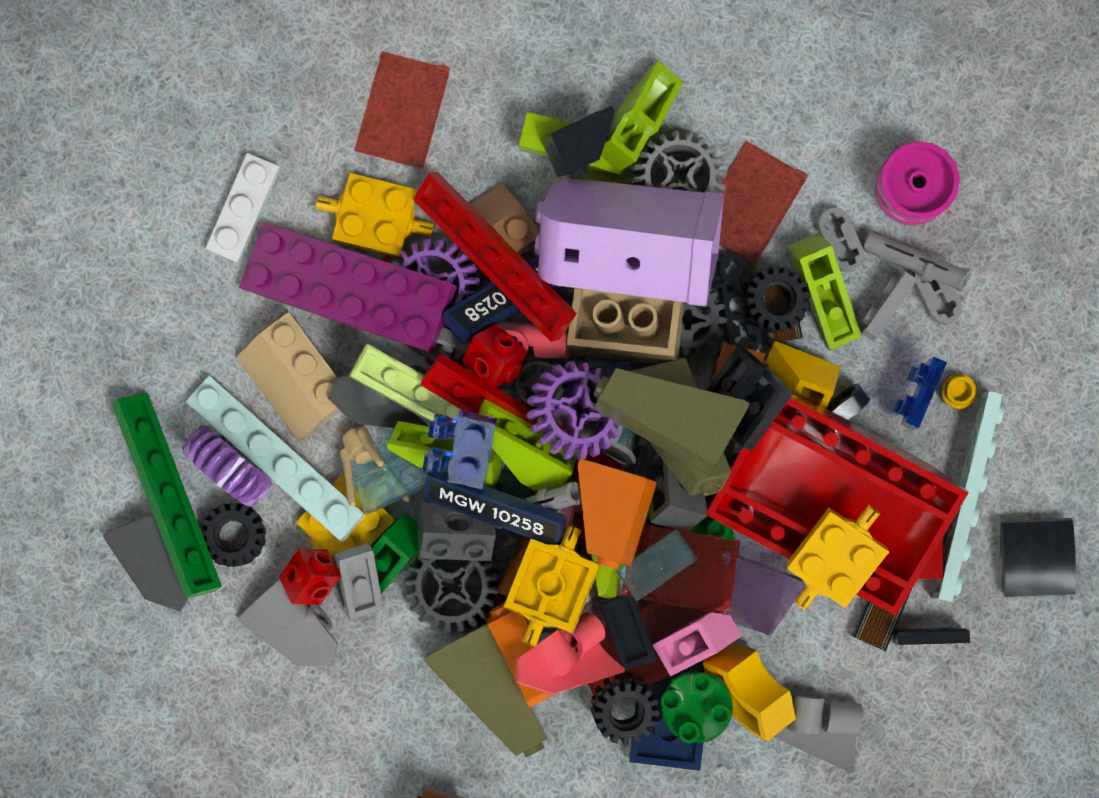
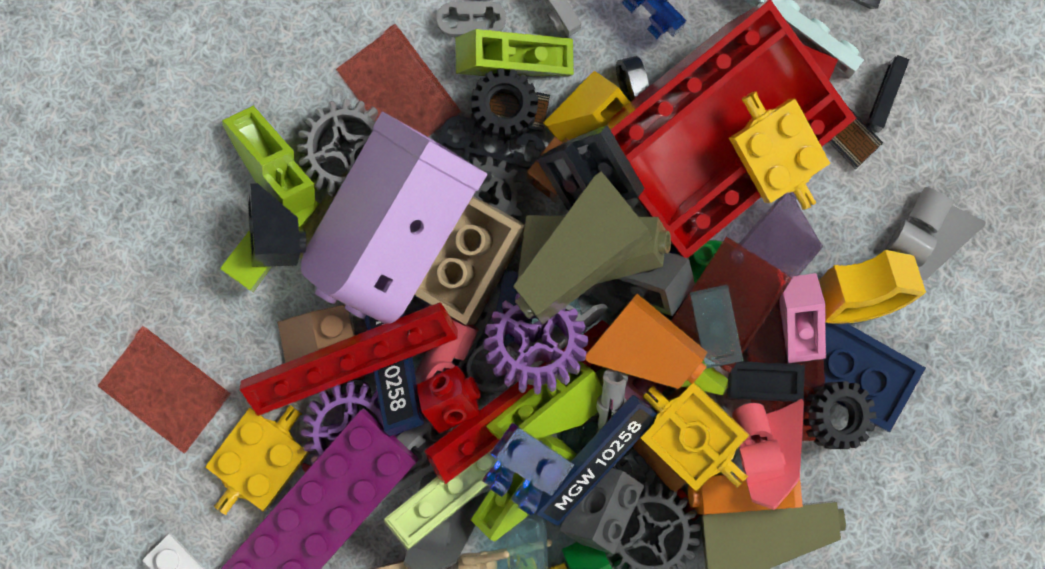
camera: 70 degrees left, 0 degrees up
(696, 707) = (864, 345): green dish -> none

